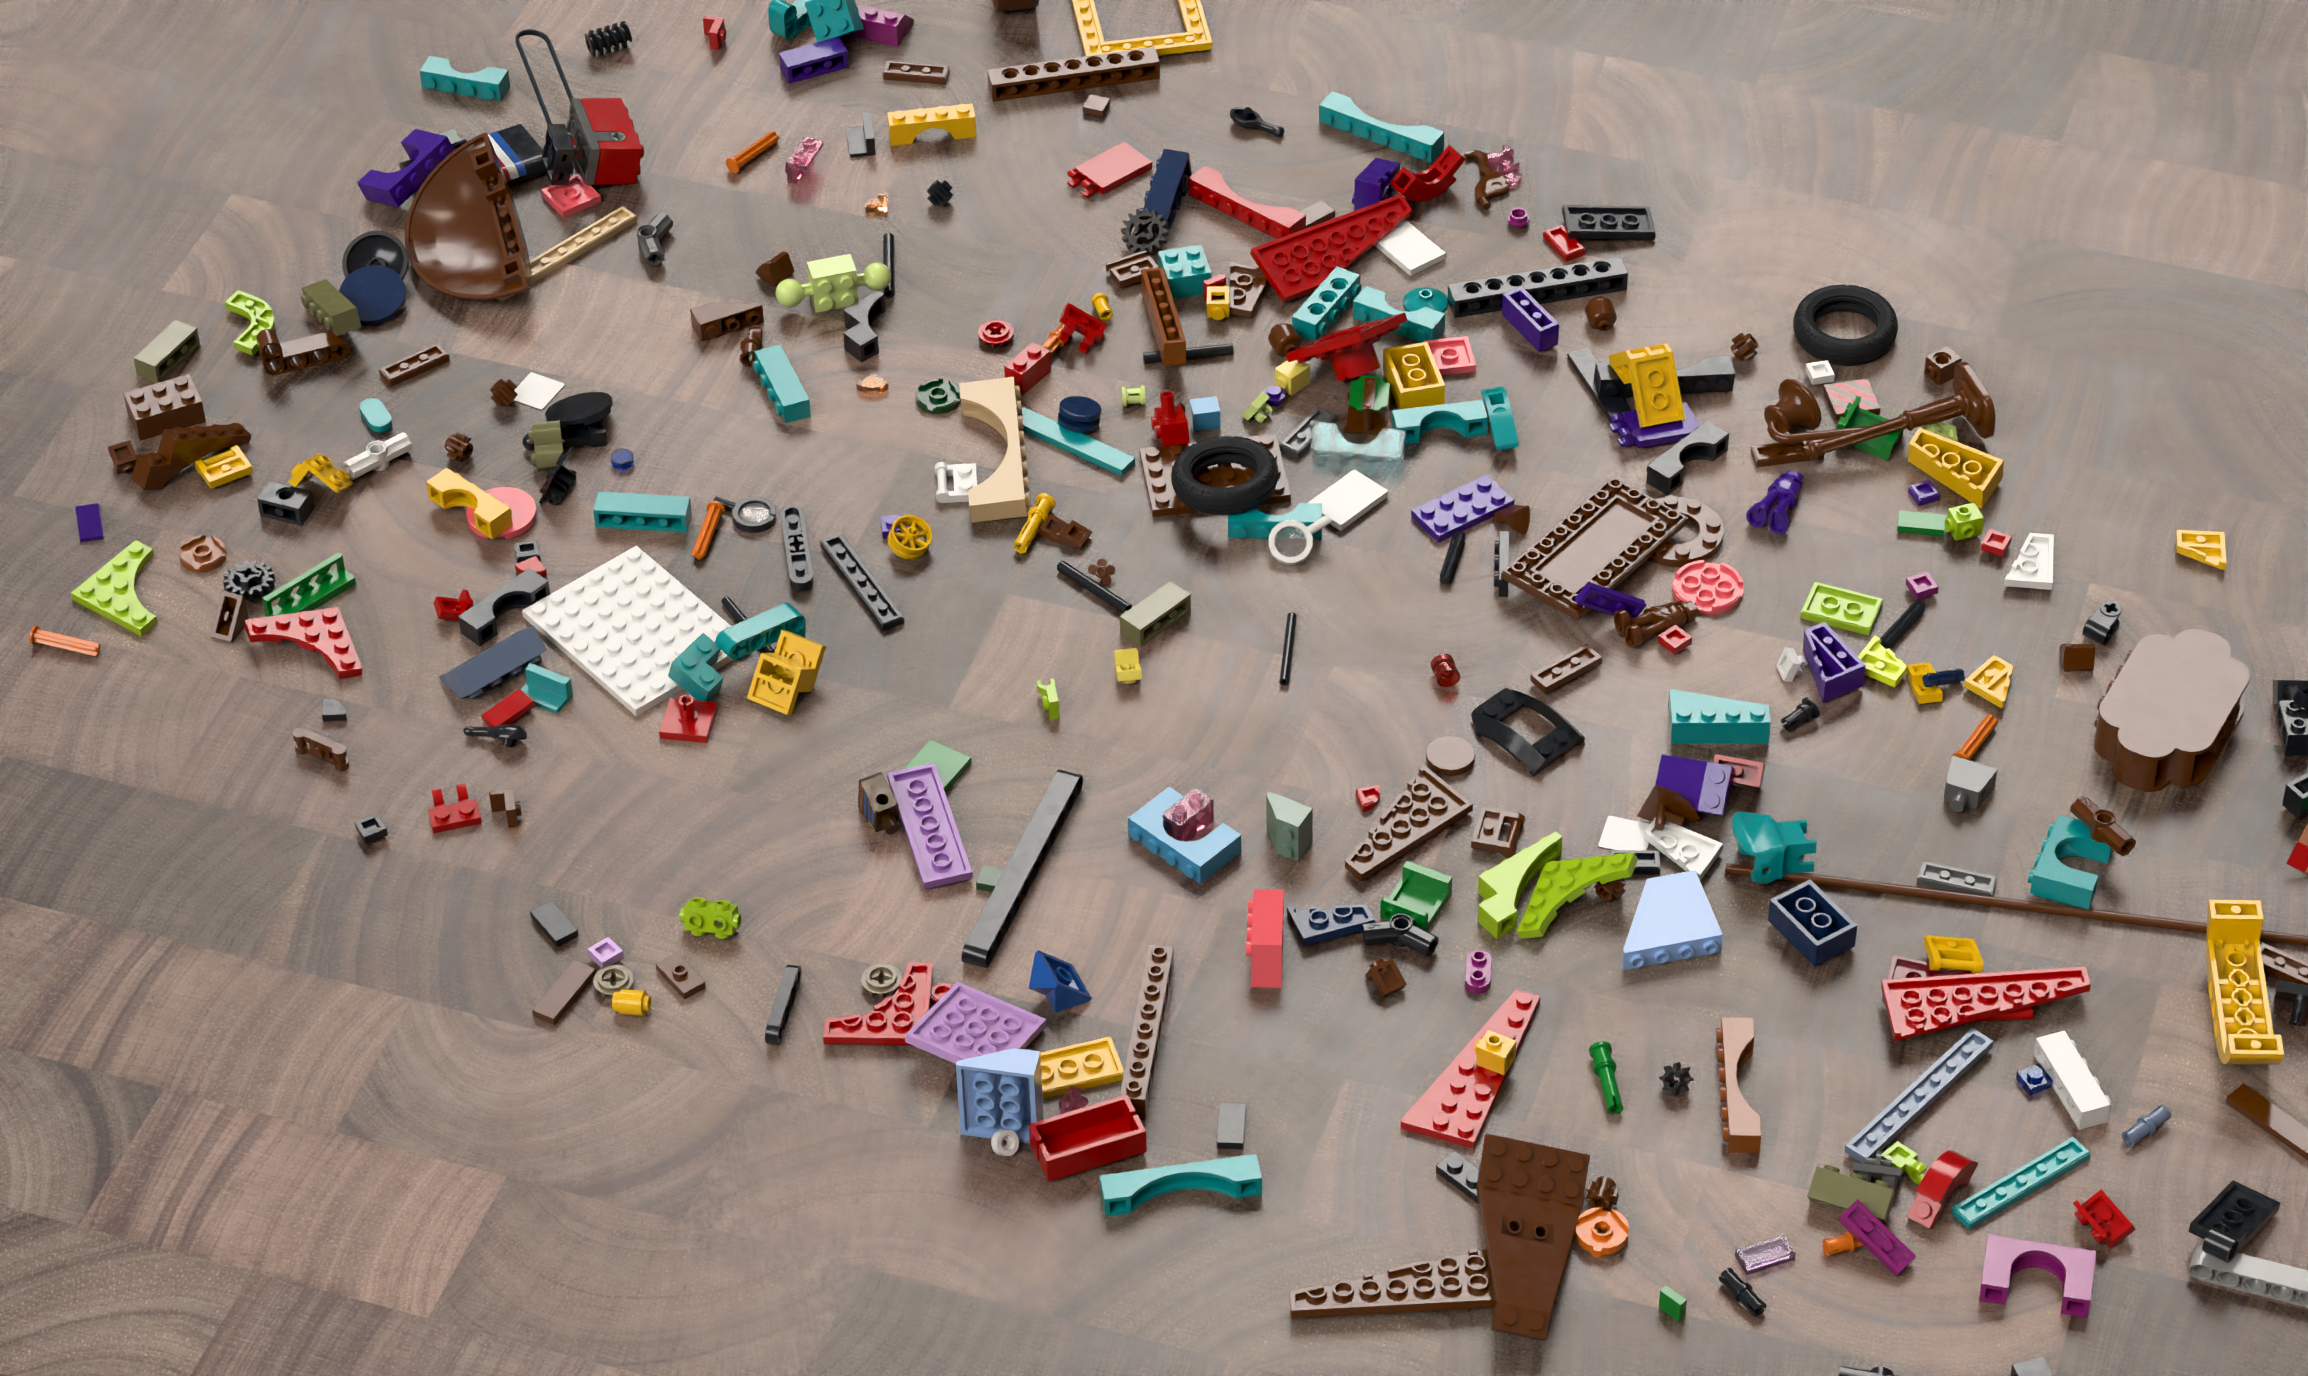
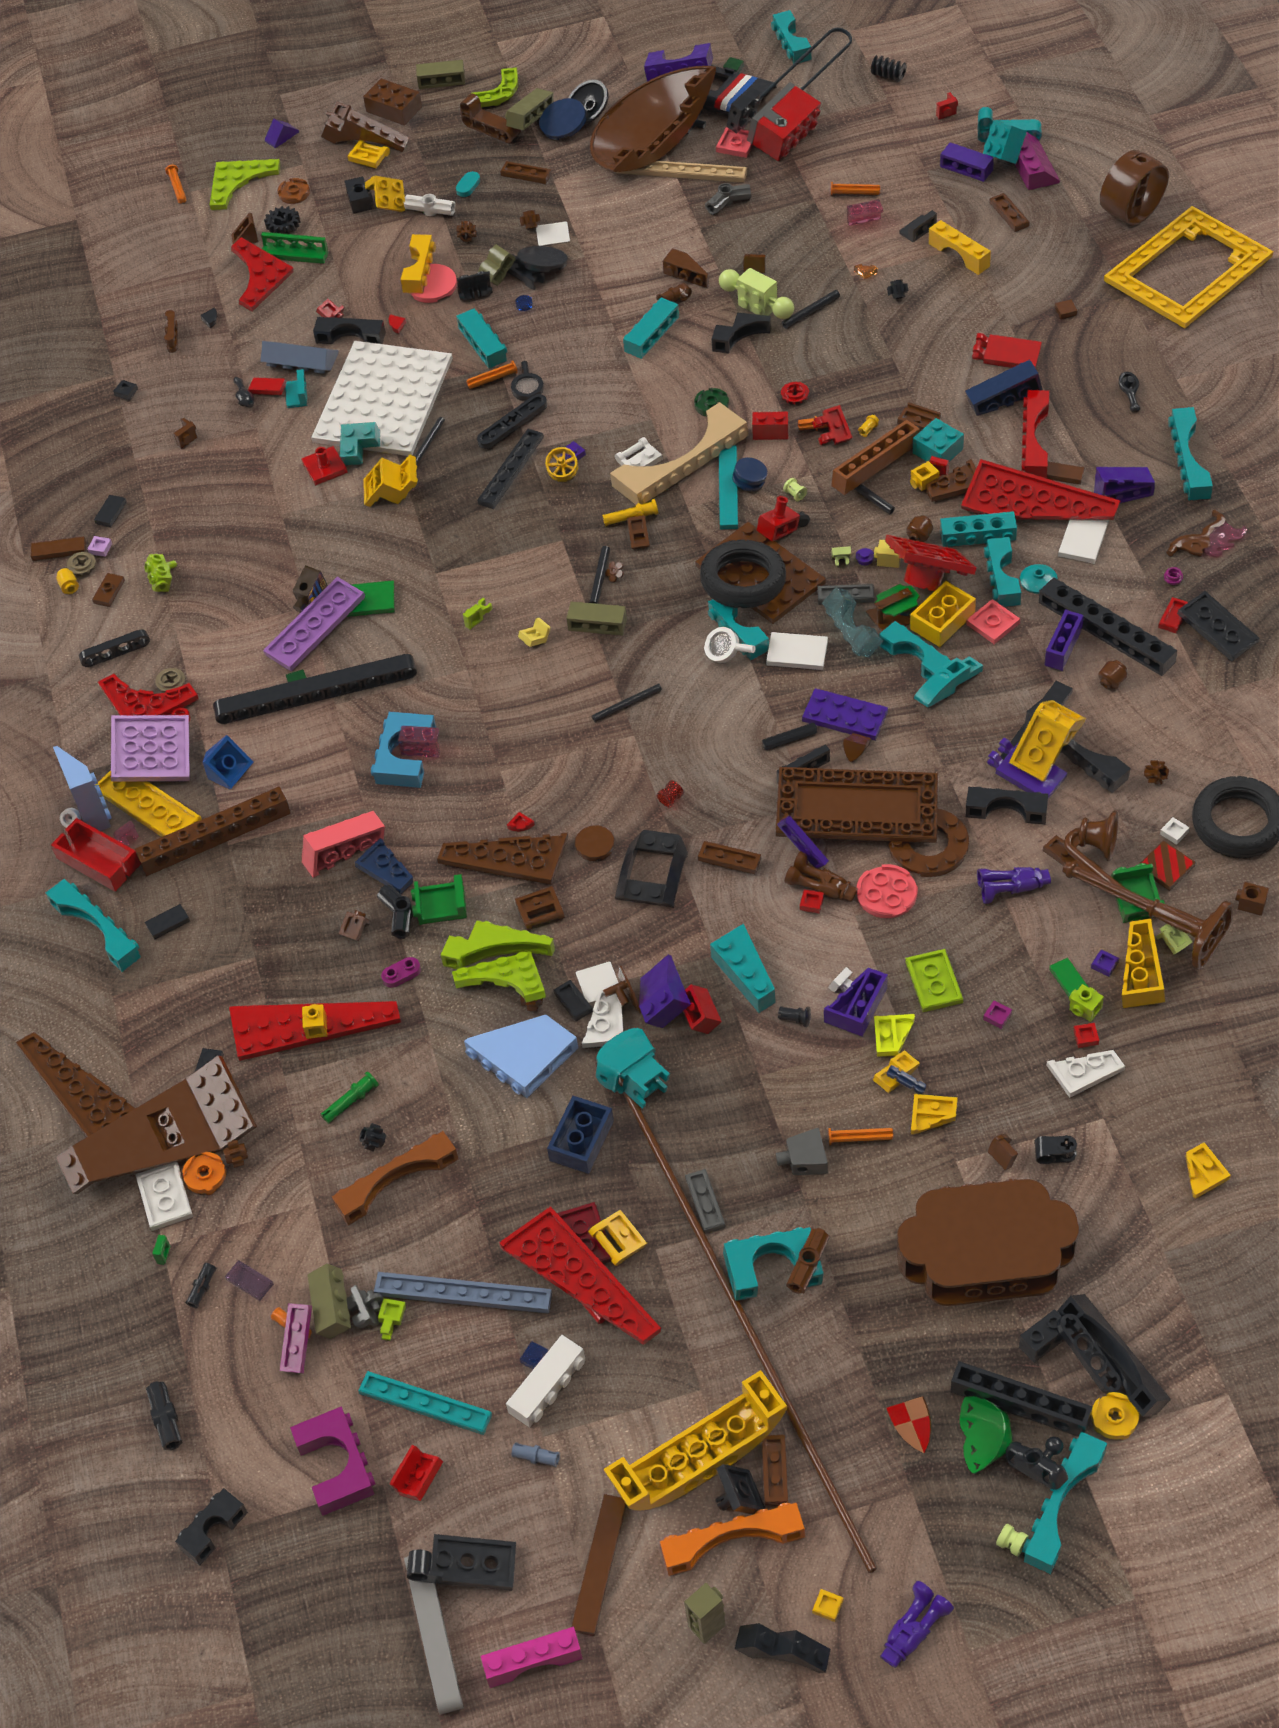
camera: 60 degrees right, 10 degrees up
(455, 815) = (165, 417): red plate -> none
(527, 550) = (409, 313): tile -> none
(760, 631) = (401, 445): teal beam -> none
(872, 383) = (693, 367): clear orange tile -> none
(1073, 74) = (1082, 280): reddish brown brick -> none
(1150, 225) = (955, 401): black gear -> none
(1205, 413) = (810, 532): dark azure panel -> none
(1289, 826) = (442, 795): sand green slope -> none
(1431, 182) = (1153, 509): red arch -> none
(1601, 1279) = (164, 1196): none -> white tile
(1902, 623) = (944, 1025): black axle -> none
(1937, 1185) = (378, 1348): red arch -> none

